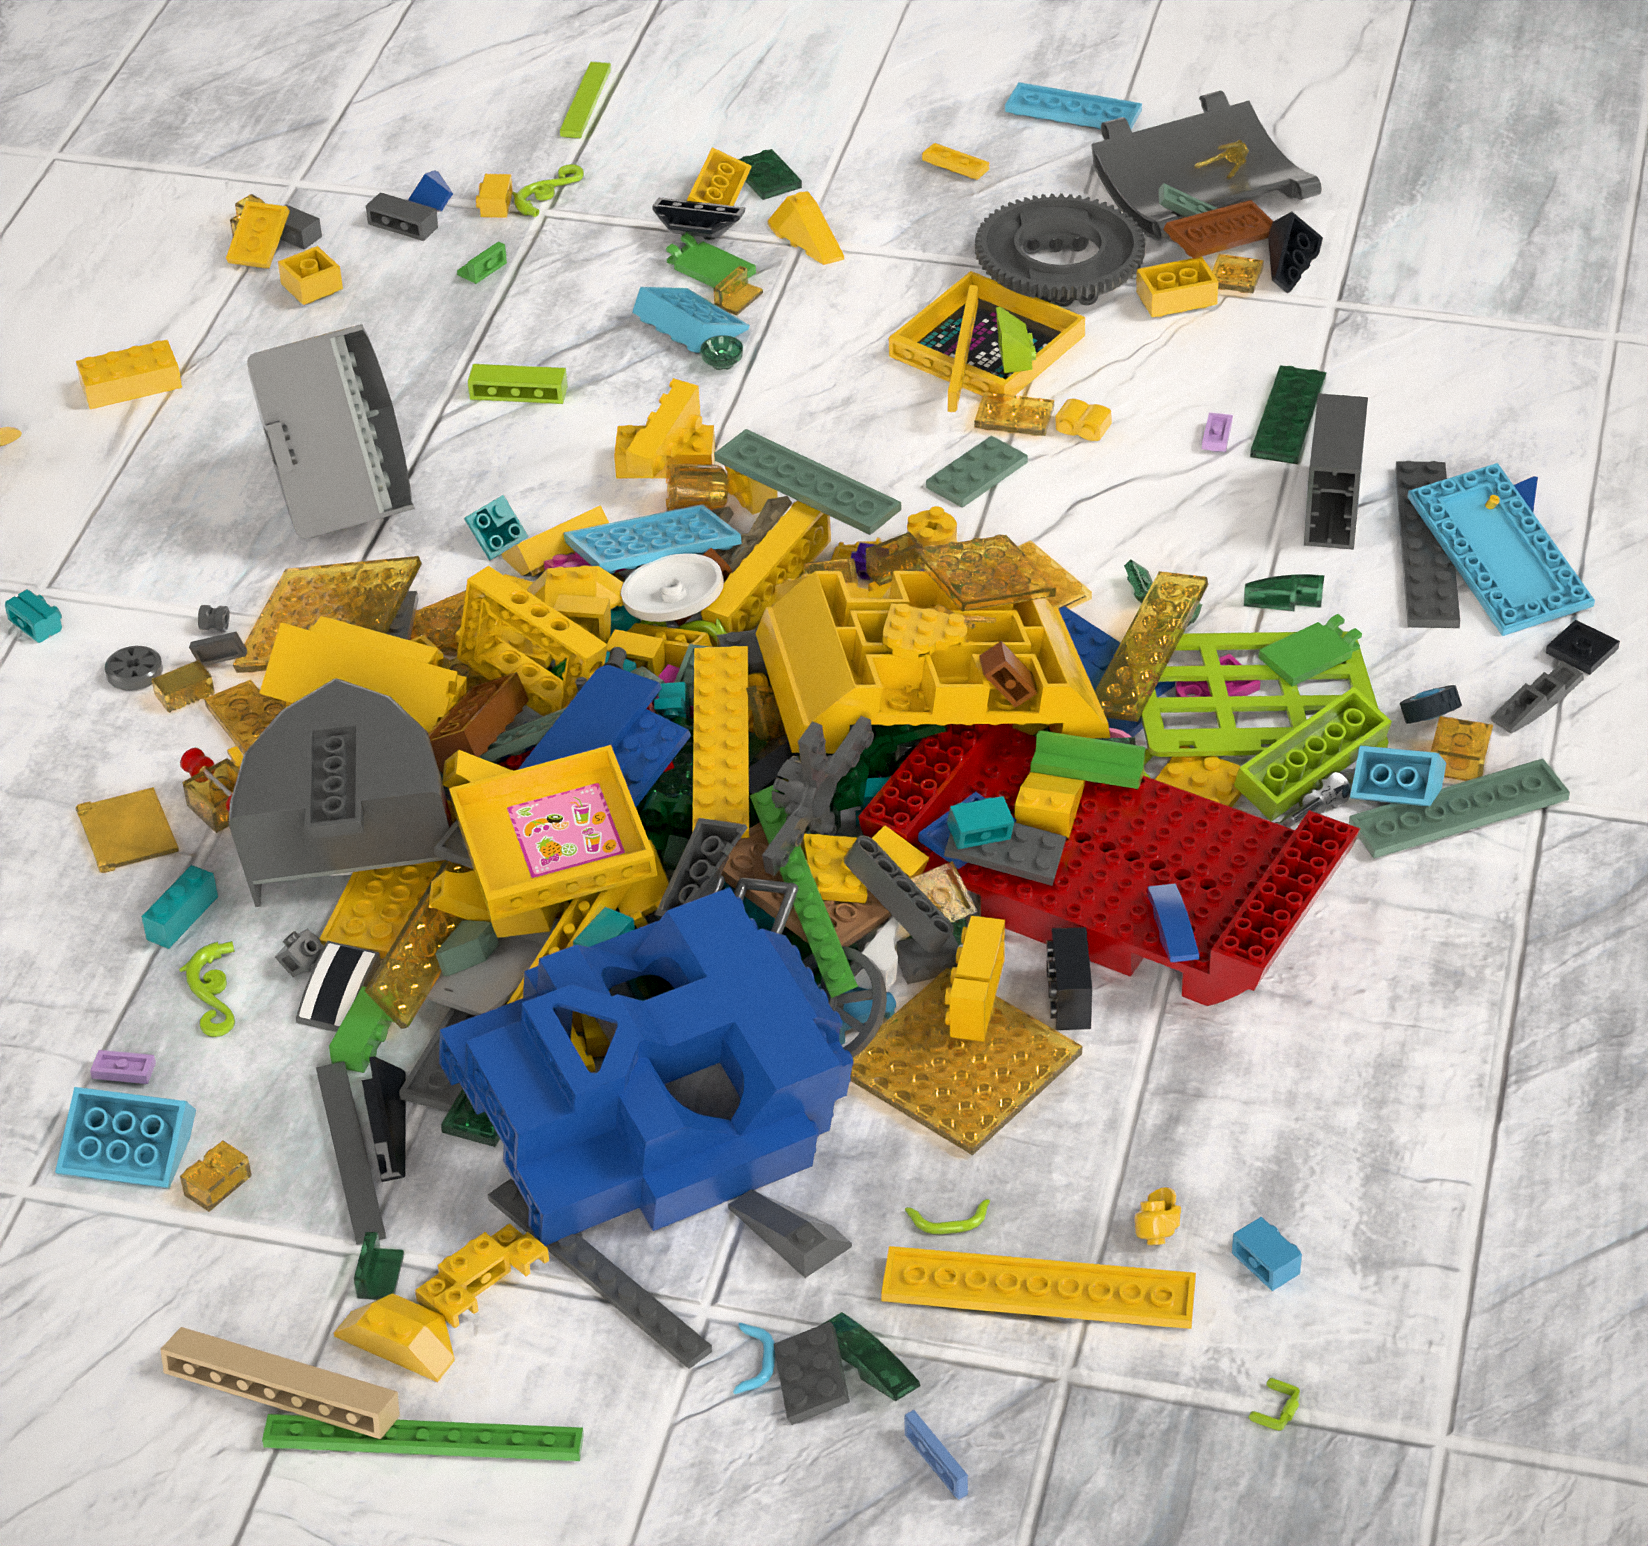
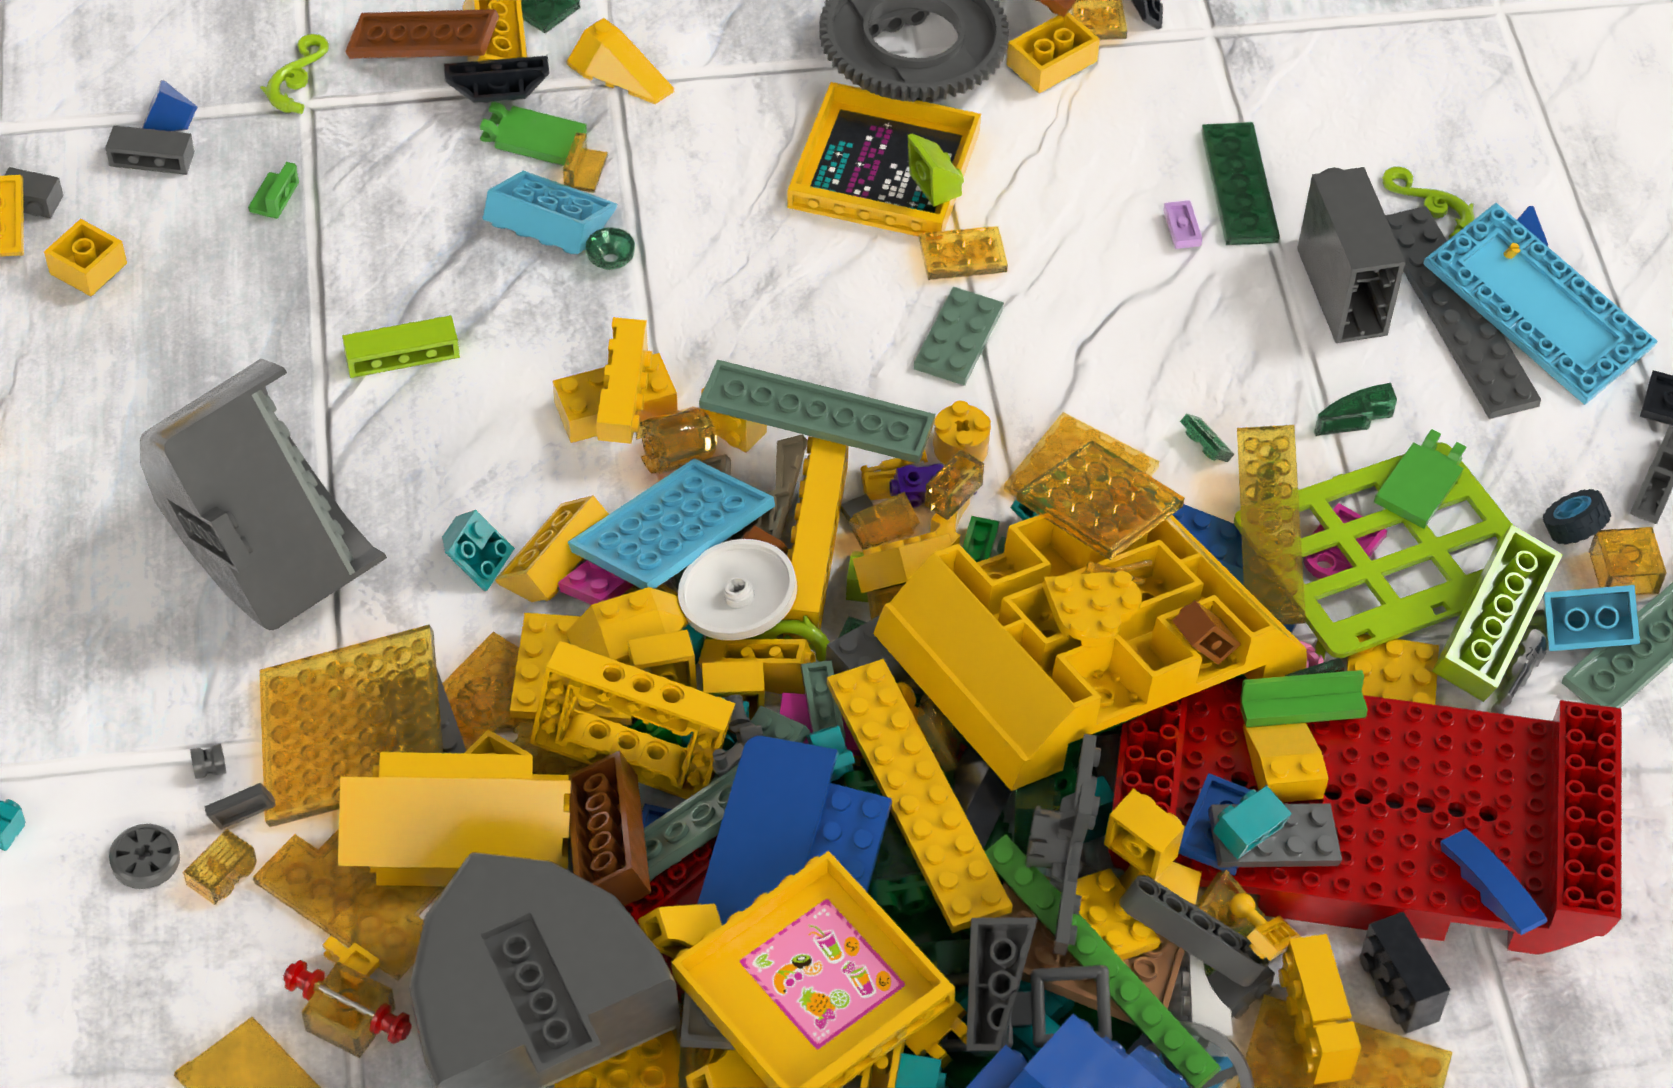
camera: 25 degrees left, 10 degrees up
(495, 195) = (245, 97): yellow brick -> none
(654, 175) = (422, 34): none -> dark orange plate
(880, 804) = (1144, 834): none -> yellow brick
(951, 907) = (1269, 937): none -> yellow plate
(962, 349) = (881, 189): yellow tile -> none
(1083, 419) = (1039, 243): yellow brick -> none
(1456, 461) = (1435, 200): none -> lime plant

